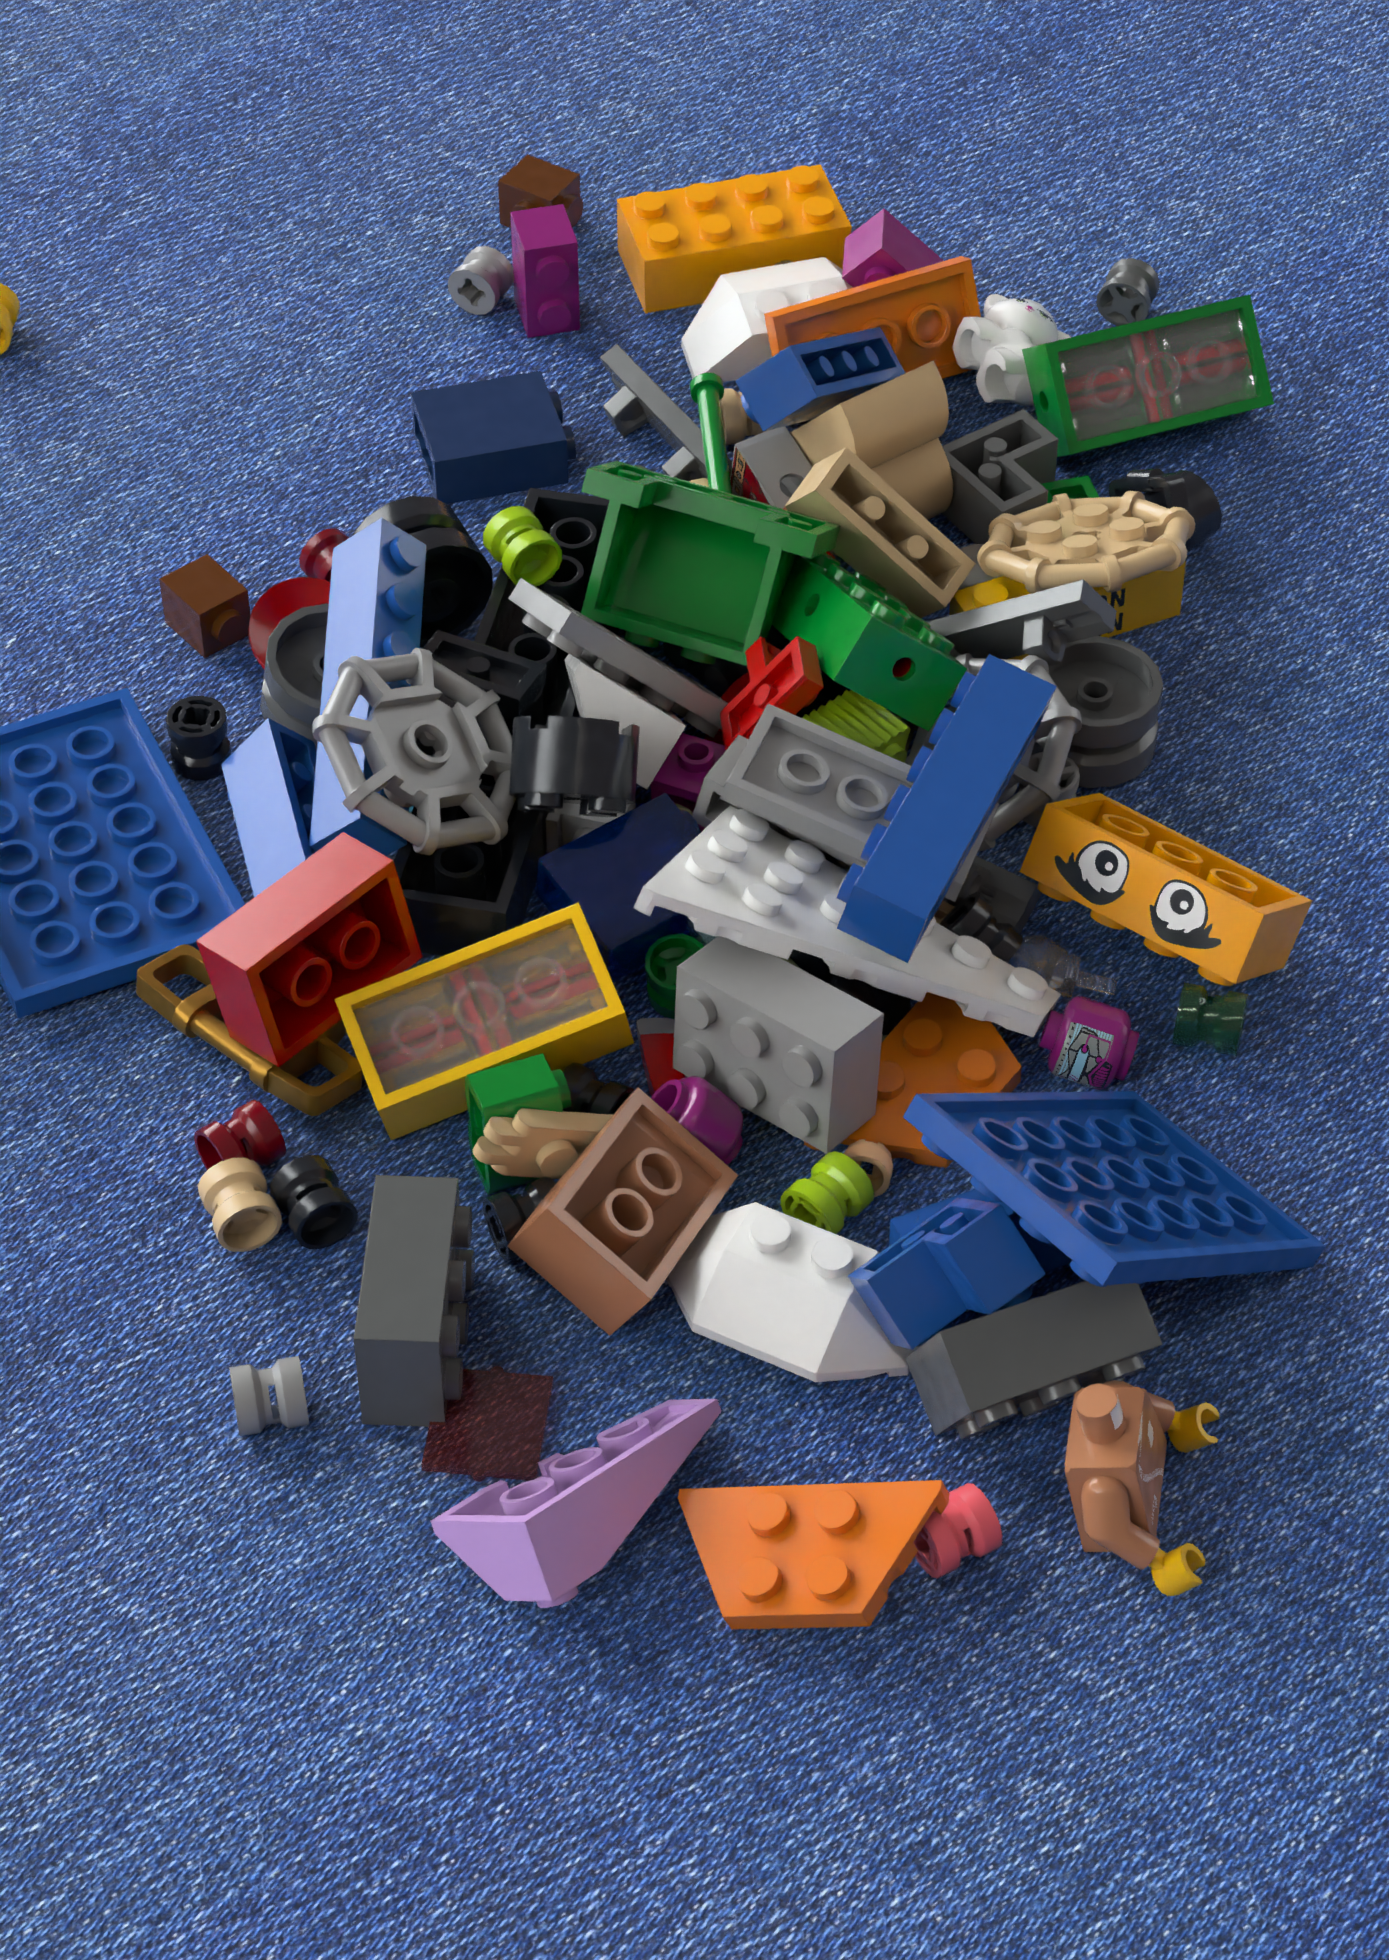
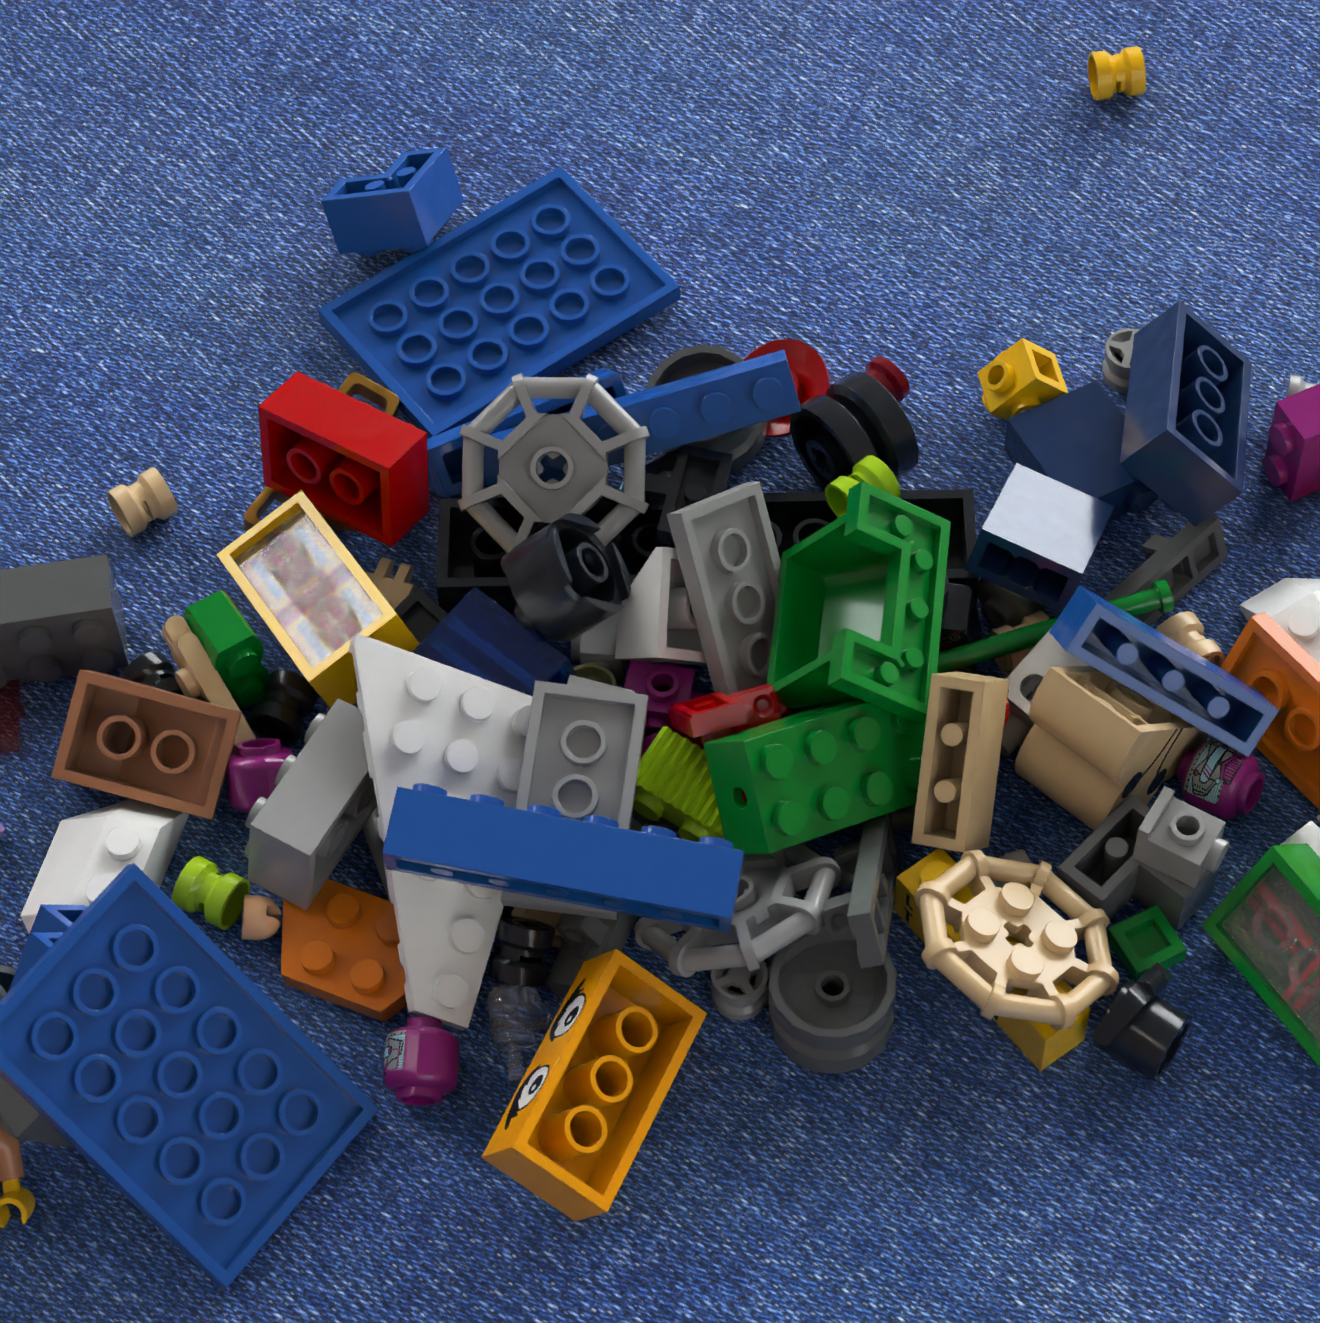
camera: 80 degrees right, 10 degrees up
(198, 737) = (637, 347): black wheel -> none
(205, 605) = (798, 309): reddish brown brick -> none
(248, 1135) = (207, 490): dark red wheel -> none
(313, 1201) = (151, 547): black wheel -> none
(374, 386) = (1118, 359): none -> light grey wheel
(381, 432) = (1020, 380): none -> yellow brick
(497, 326) = (1186, 414): none -> dark blue brick
(602, 429) = (1039, 538): none -> brick
(1017, 404) = (1180, 839): none -> light grey brick
(1210, 1019) = (464, 1169): clear green wheel -> none

